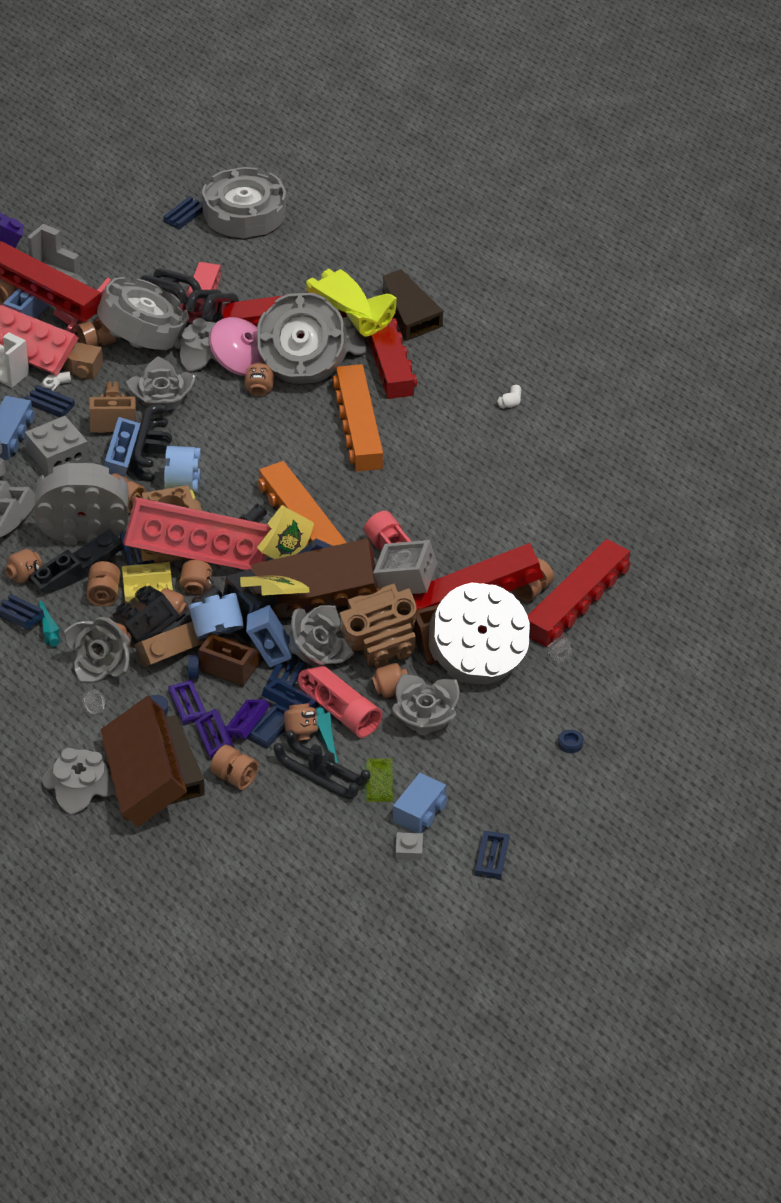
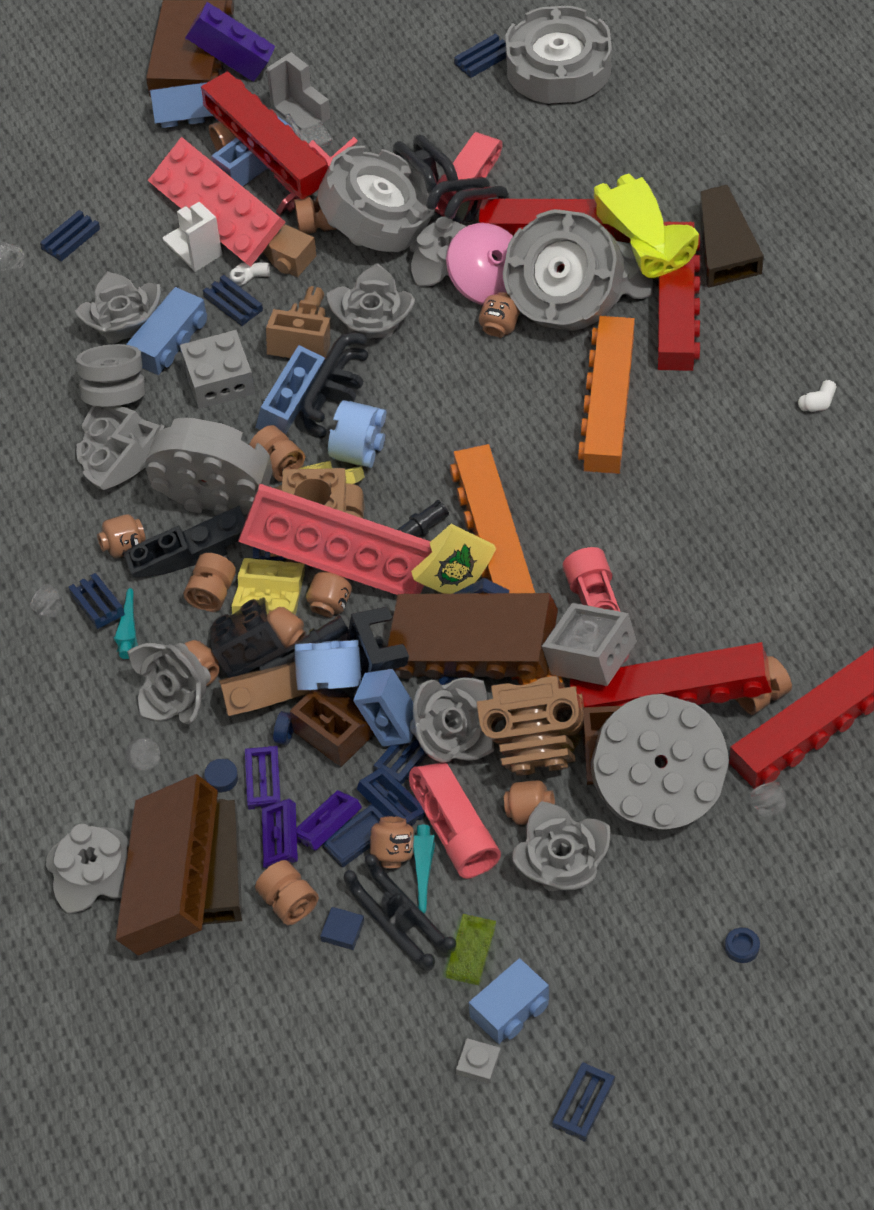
camera: 20 degrees right, 10 degrees up
(274, 584) = (409, 639): light yellow slope -> none
(281, 784) = (342, 928): none -> dark blue tile

